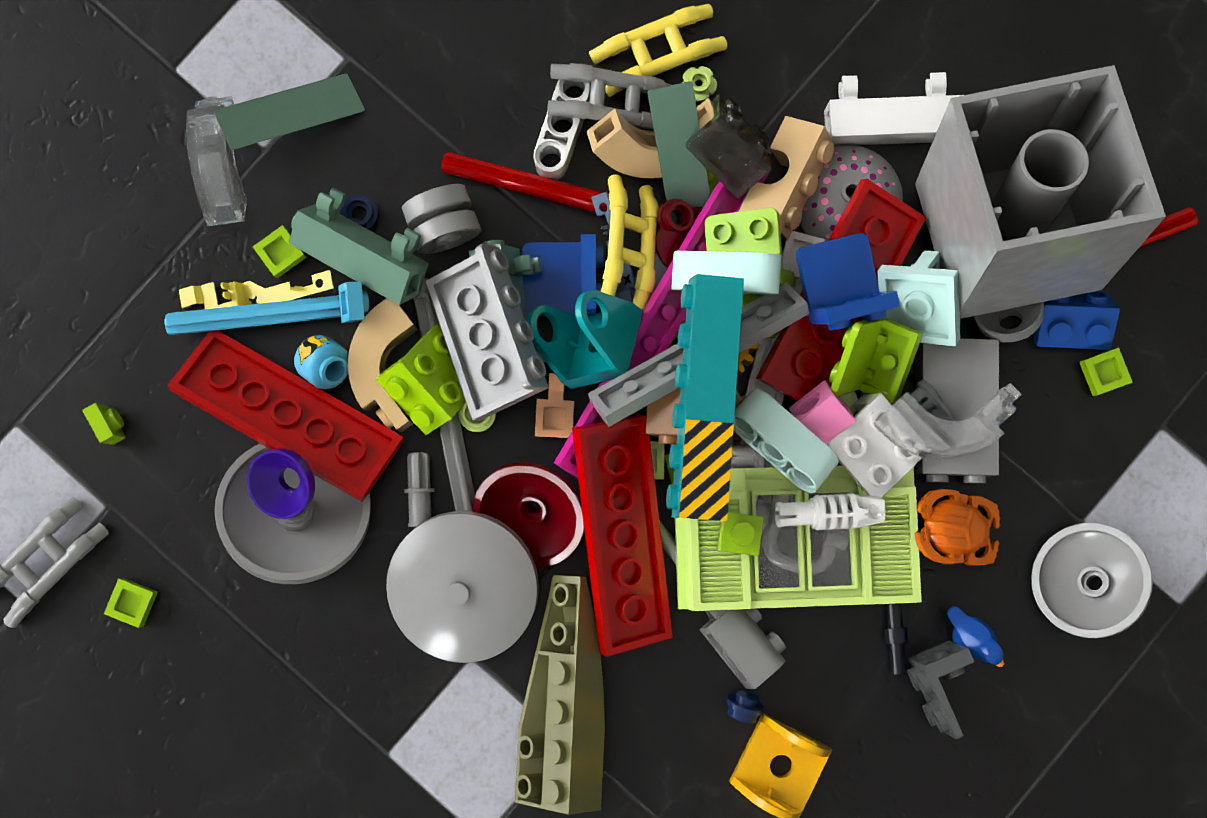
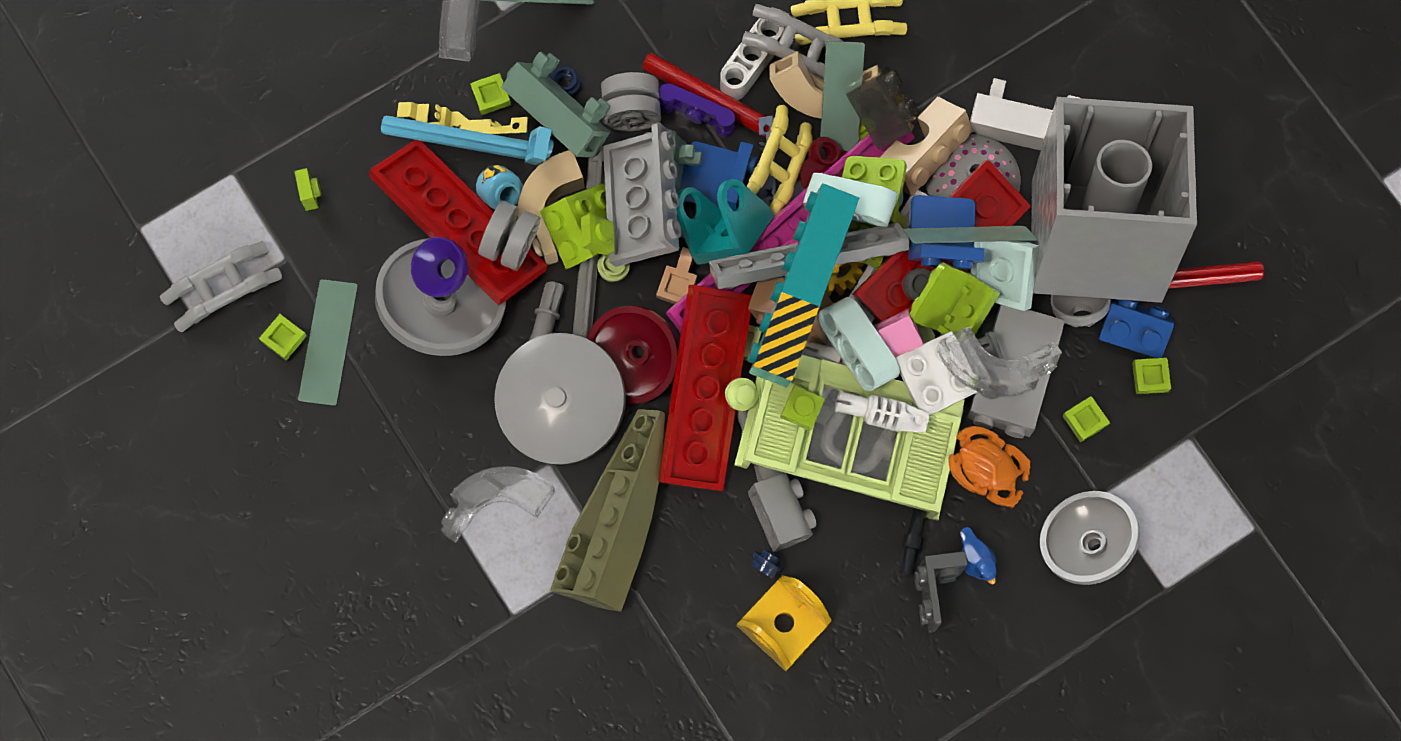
camera: 15 degrees right, 10 degrees down
(184, 590) = (328, 342): none -> sand green sticker
(349, 423) = (509, 235): none -> light grey wheel
(436, 700) = (493, 486): none -> clear arch
(450, 393) = (597, 234): none -> lime plate
(518, 204) = (697, 109): none -> dark purple plate
(664, 531) = (741, 394): none -> yellowish green plate
(704, 75) = (882, 54): yellowish green plate -> none
(826, 347) = (915, 282): none -> dark grey tile
(873, 278) = (969, 234): none -> sand green sticker
(1047, 442) = (1086, 419): none -> lime plate

